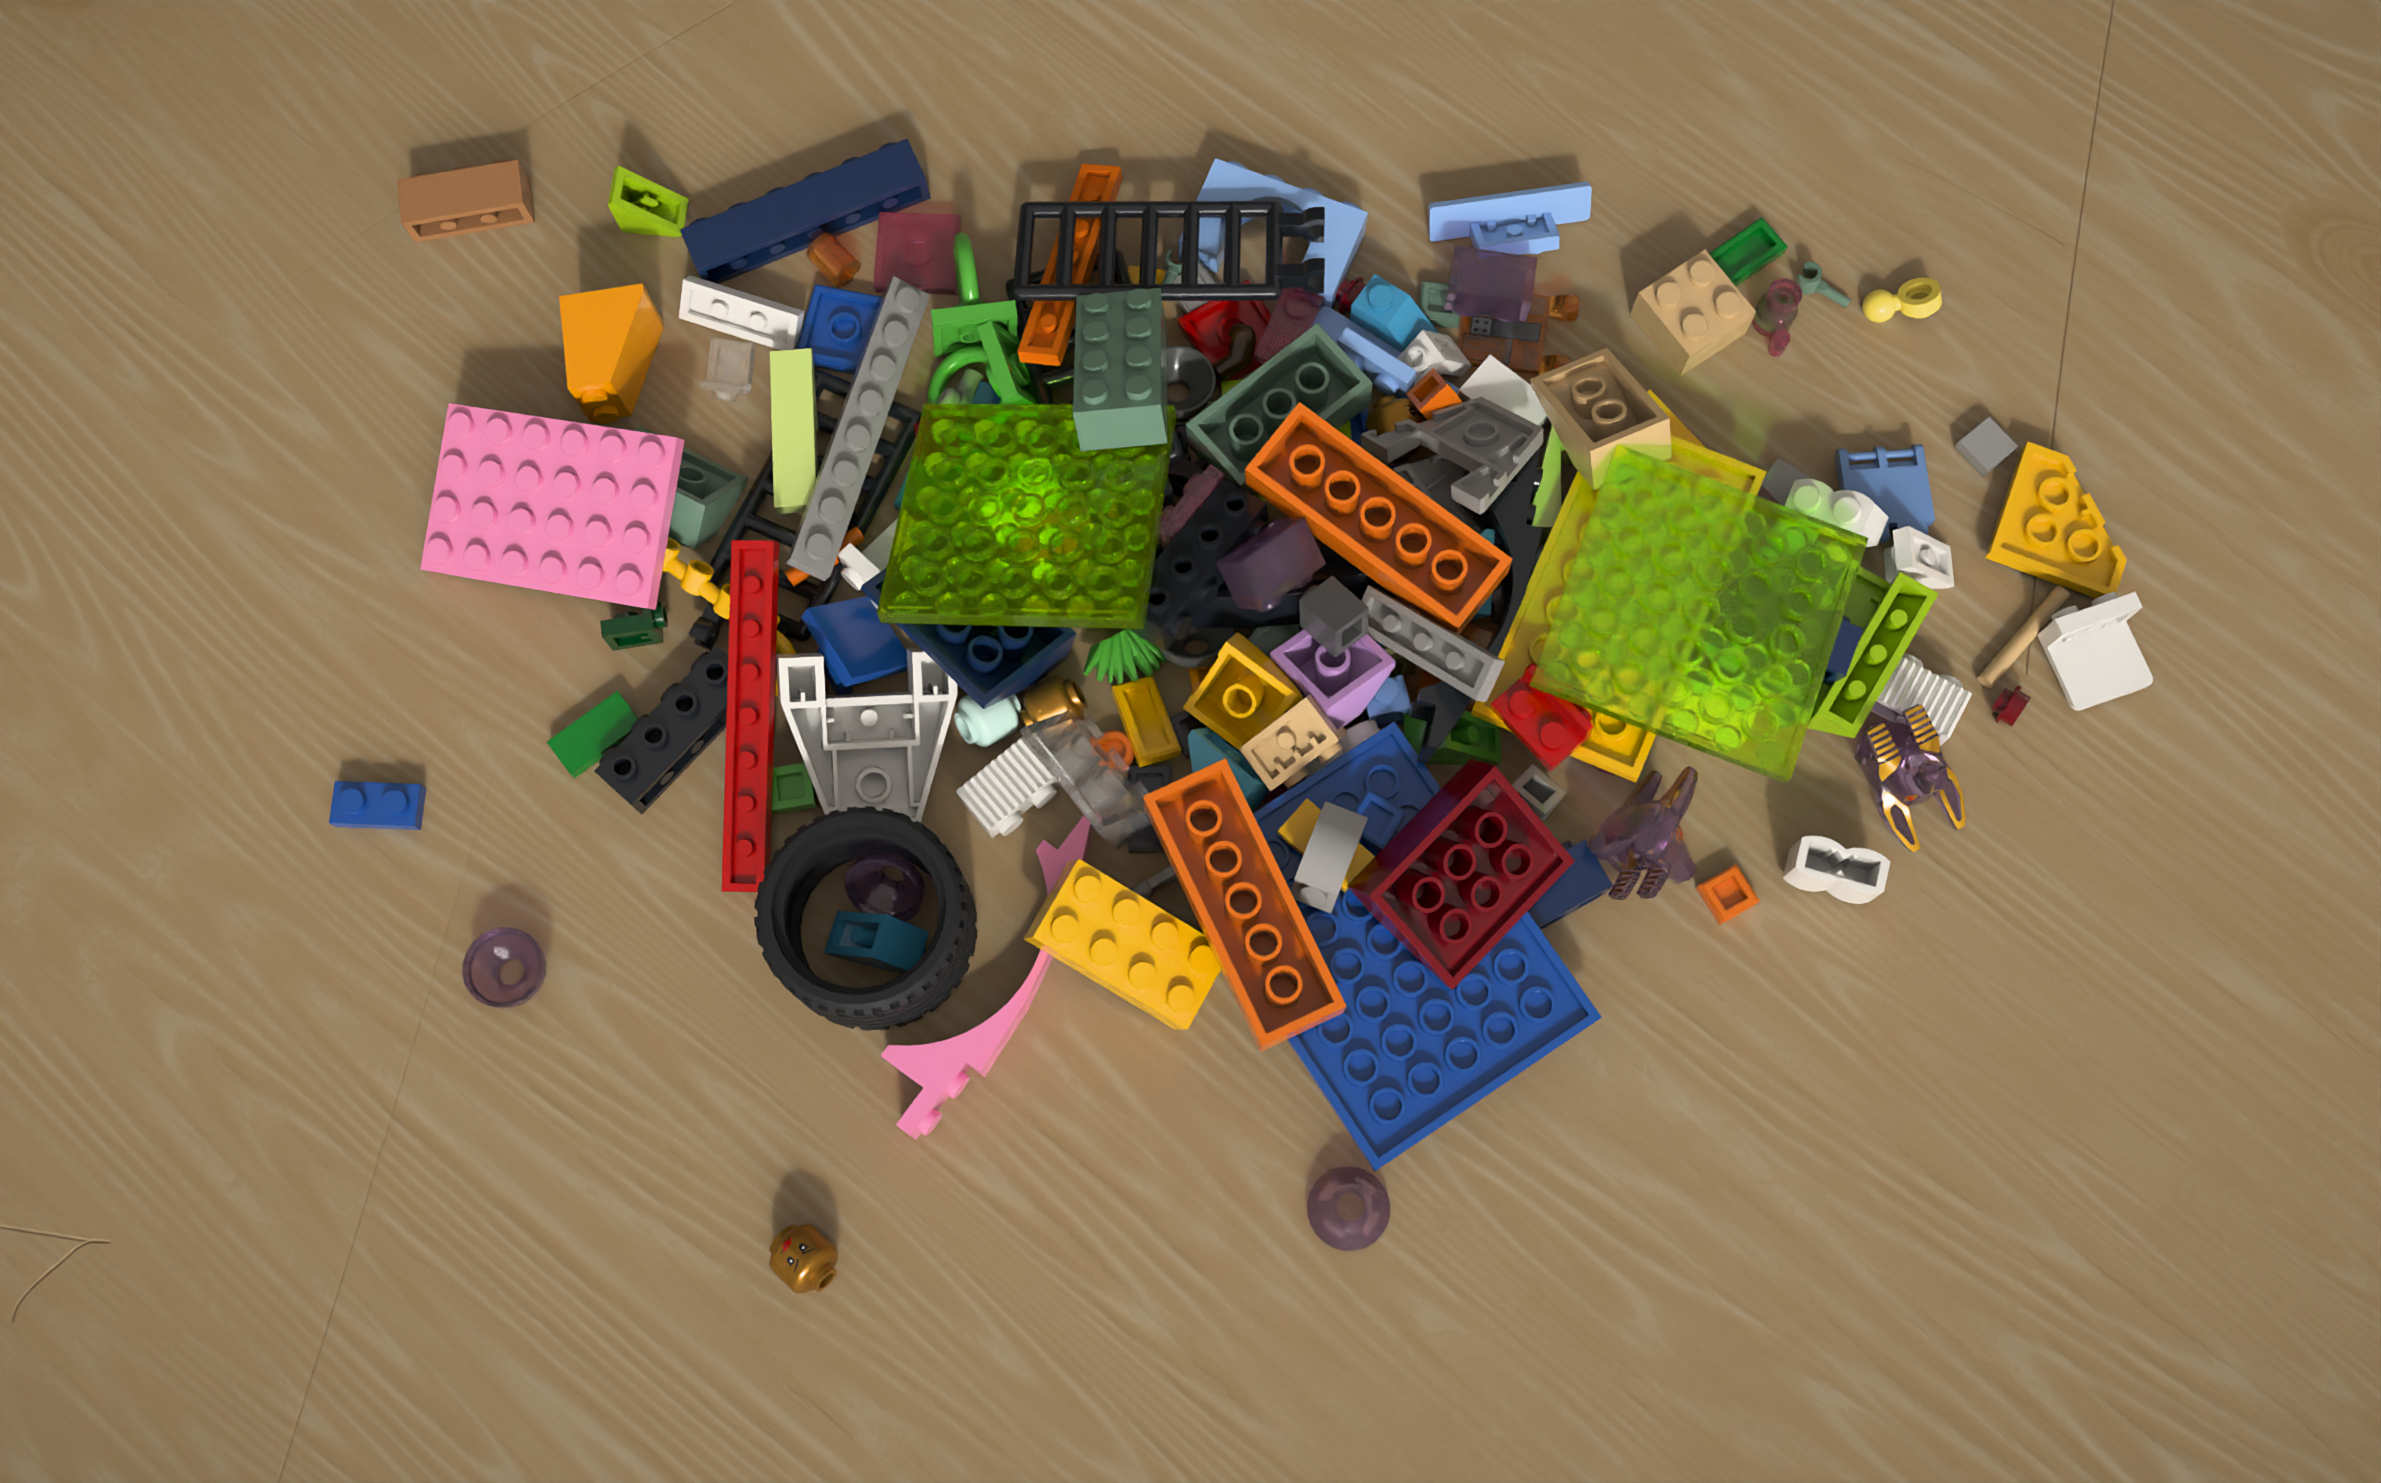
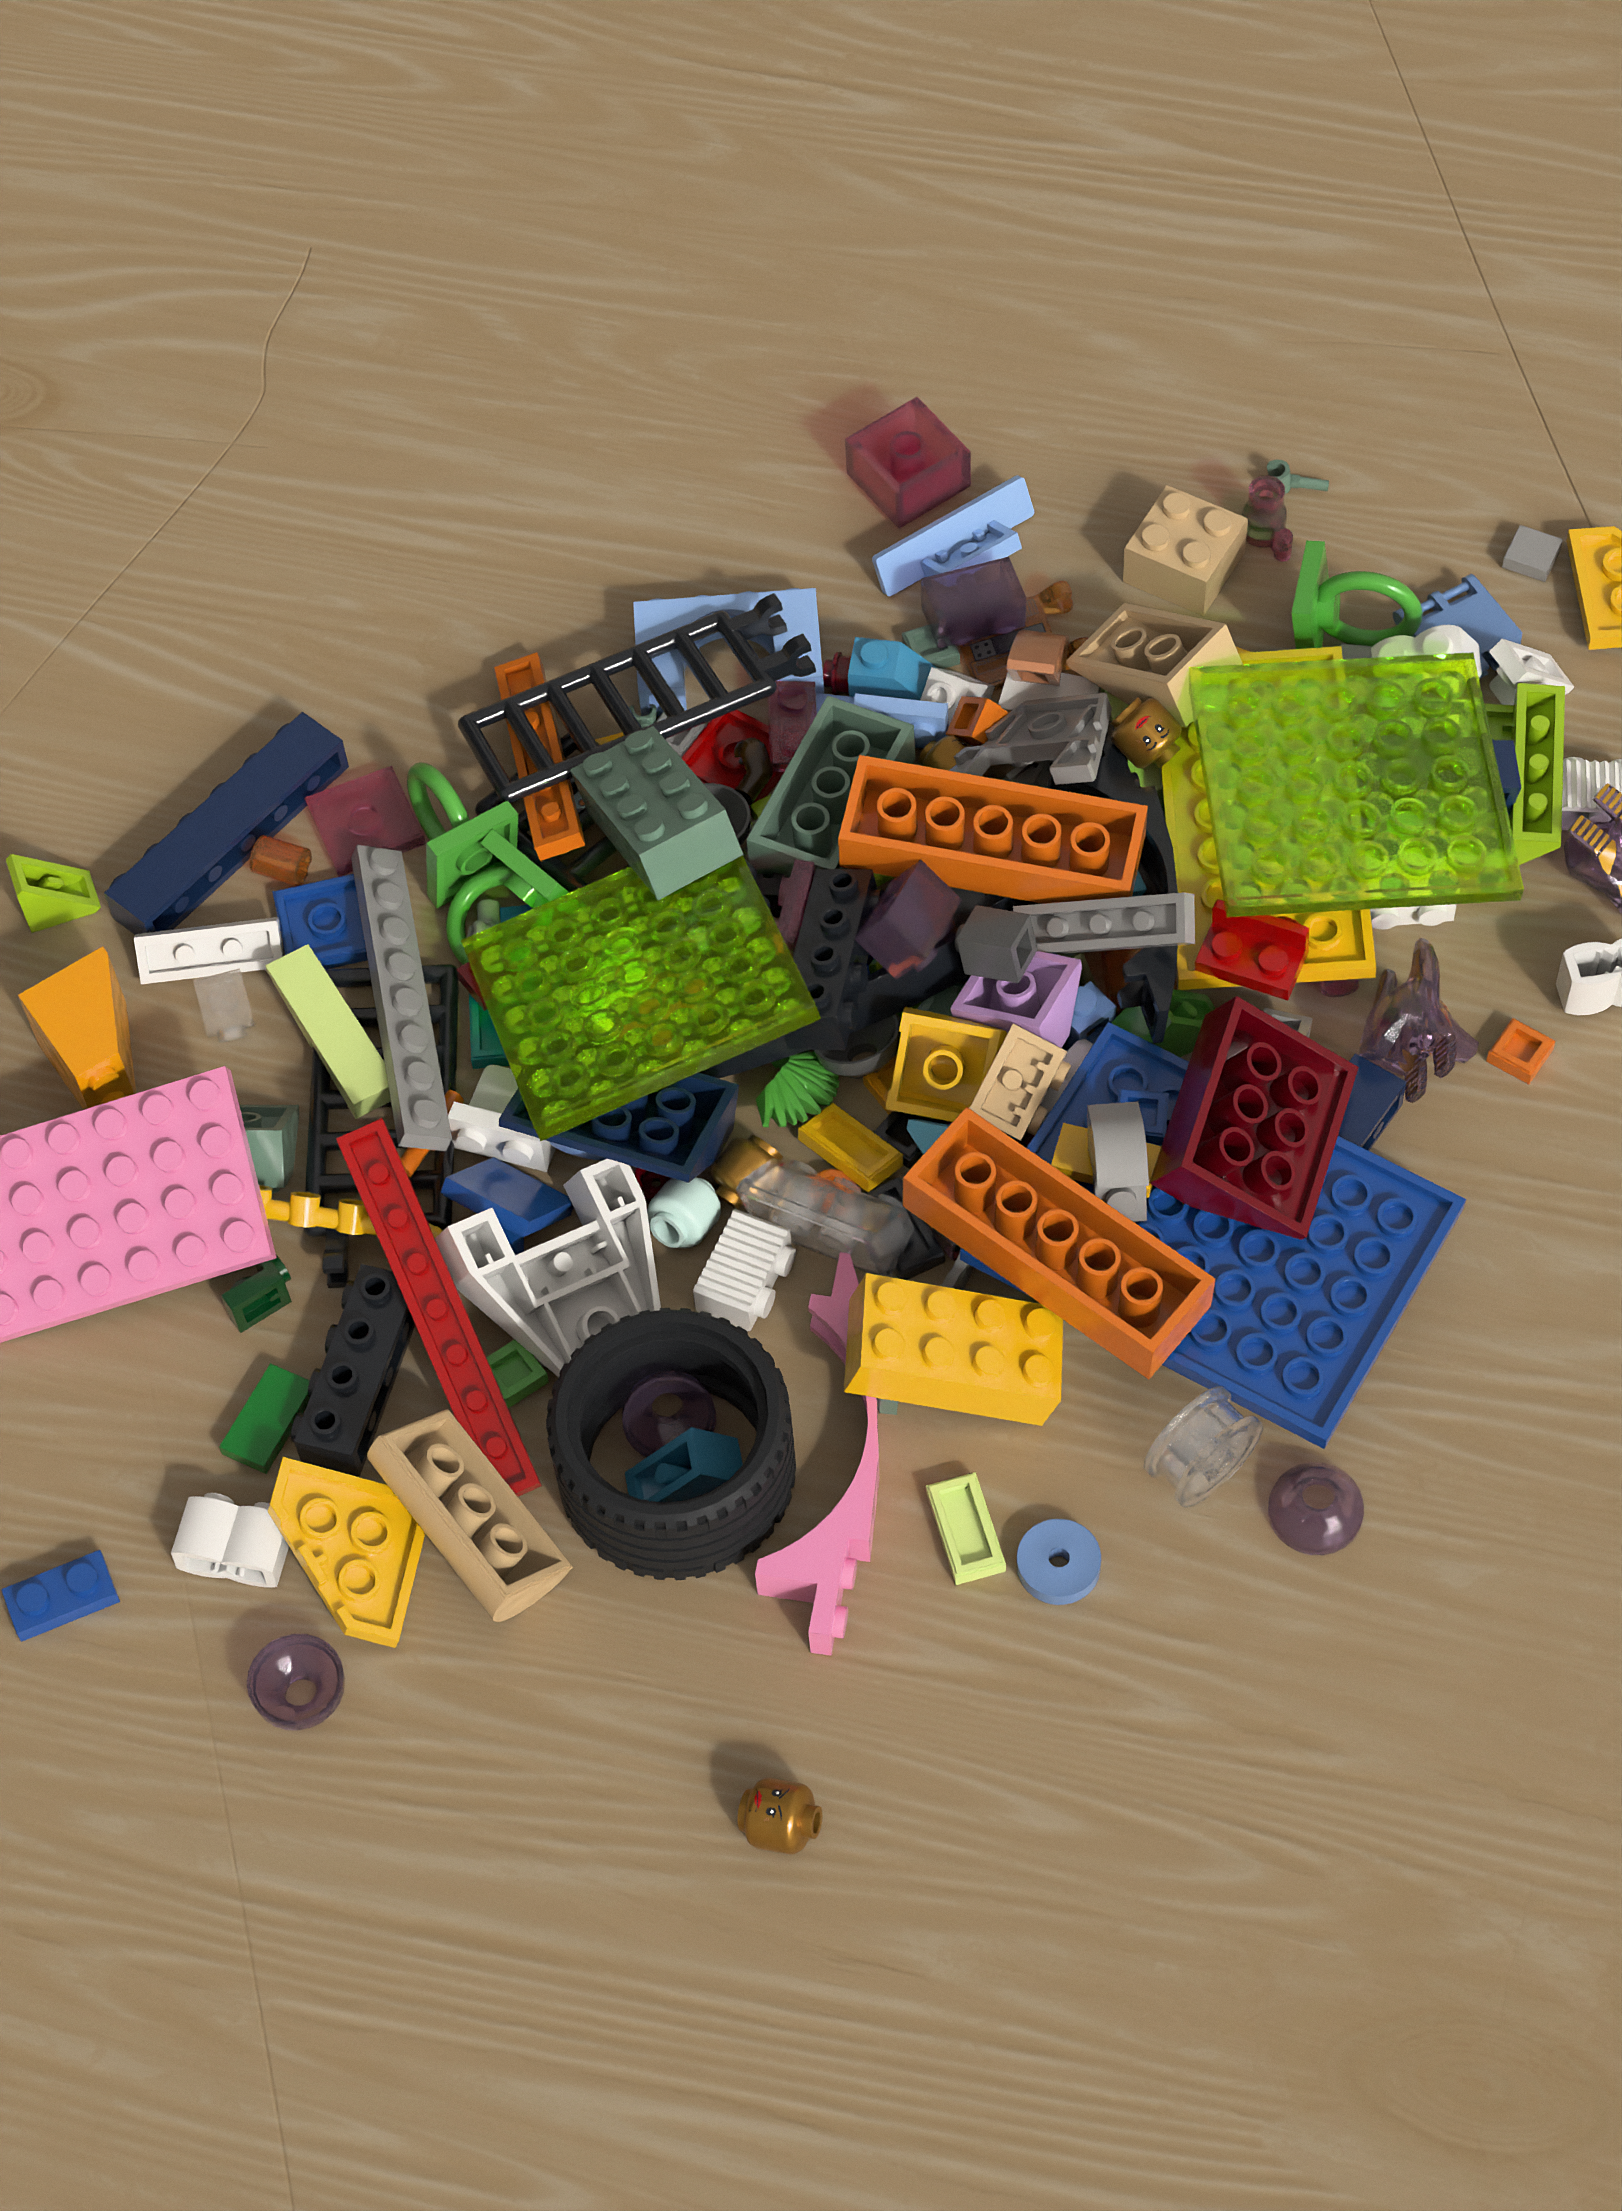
camera: 25 degrees left, 15 degrees down
(518, 826) = (229, 1541): none -> white brick
(600, 875) = (352, 1545): none -> yellow plate
(692, 896) = (469, 1513): none -> tan brick
(1069, 1088) = (965, 1528): none -> yellowish green tile
(1119, 1132) = (1053, 1583): none -> medium blue piece
(1278, 1123) = (1203, 1446): none -> clear wheel
(1505, 128) = (908, 462): none -> clear pink brick
(1511, 362) = (1038, 657): none -> nougat slope
(1558, 479) = (1146, 733): none -> pearl gold head
(1748, 251) = (1209, 474): green tile -> none
(1772, 421) = (1318, 603): none -> bright green tile
(1914, 299) = (1389, 452): light yellow plate -> none

